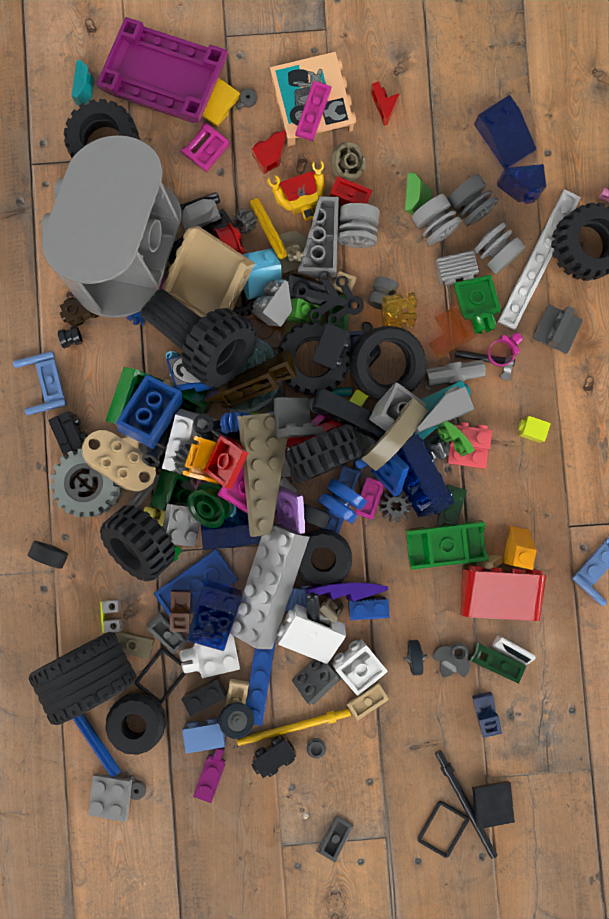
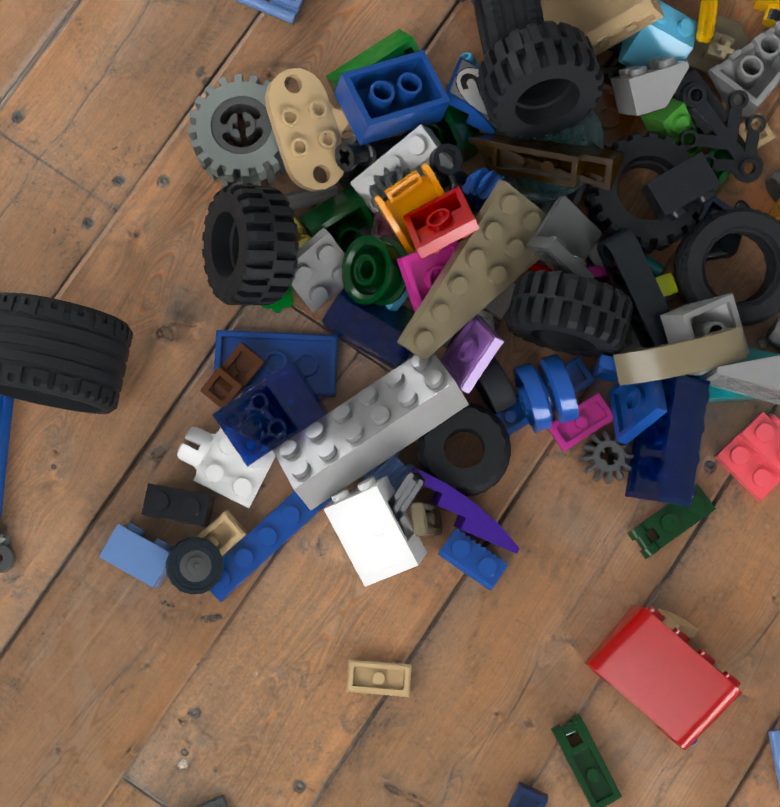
camera: 40 degrees right, 5 degrees down
(47, 554) = (127, 181): black tyre -> none
(67, 432) = (269, 52): black brick -> none
(106, 607) = (145, 302): flat silver piece -> none
(124, 738) = (41, 456): black tyre -> none
(135, 644) = (144, 377): dark tan plate -> none
(148, 667) = (170, 409): black piece -> none
(160, 628) = (193, 404): dark grey slope -> none
(210, 776) = (105, 614): magenta hinge -> none
(269, 759) = (196, 650): black brick -> none
(315, 680) = (333, 598): dark grey bracket -> none
(316, 748) = (265, 686): dark grey plate -> none
(330, 717) = (315, 661): yellow bar -> none
(358, 666) = (402, 624): white plate -> none
(415, 657) = (484, 668): black wheel -> none
(438, 447) = (720, 425): dark grey gear -> none
(446, 545) = (636, 556): green piece -> none
(449, 432) = (752, 413): bright green slope -> none
(450, 661) = (525, 714): dark grey plate -> none
(512, 650) = (619, 763): white slope -> none
(519, 548) = (728, 635): light orange slope -> none

